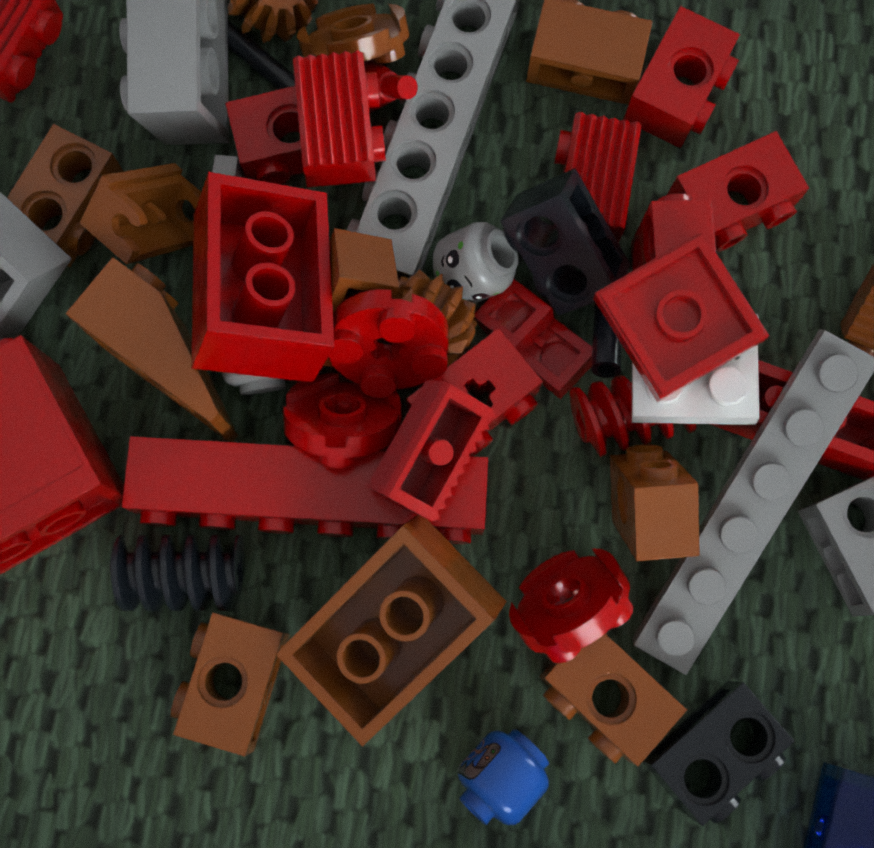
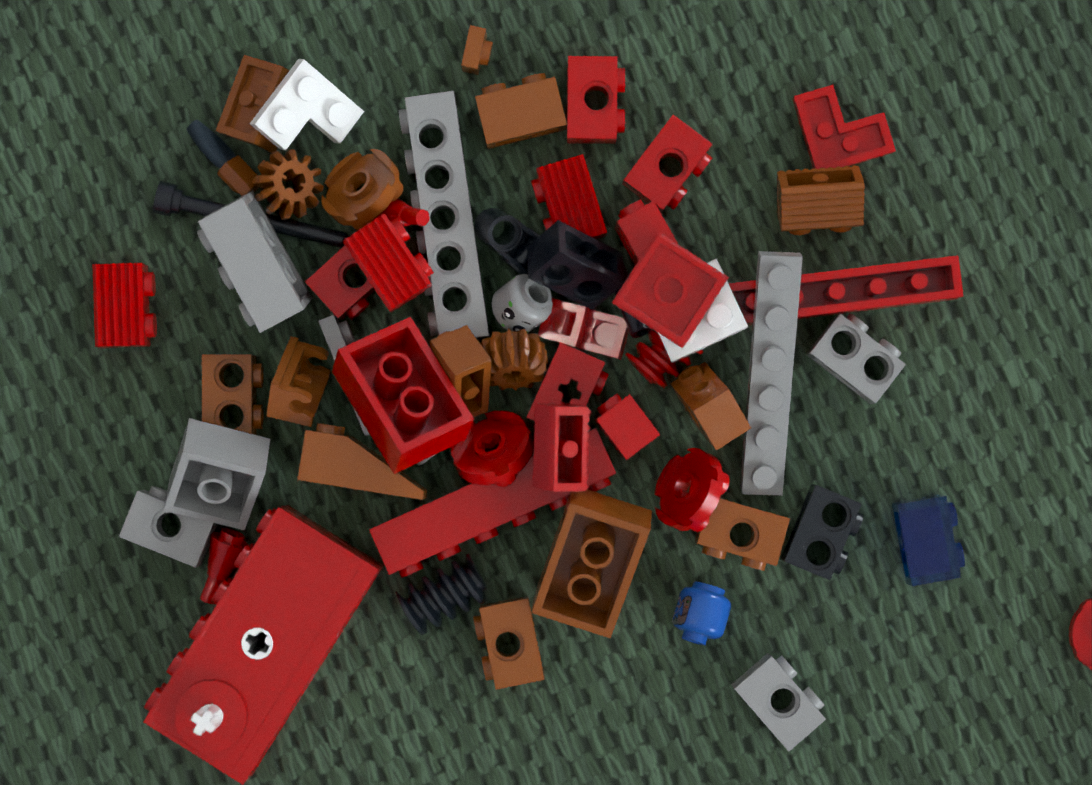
camera: 30 degrees left, 10 degrees up
(382, 368) = (501, 394): red plate -> none
(496, 192) = (511, 243): none -> black piece
(529, 472) = (625, 425): none -> red brick

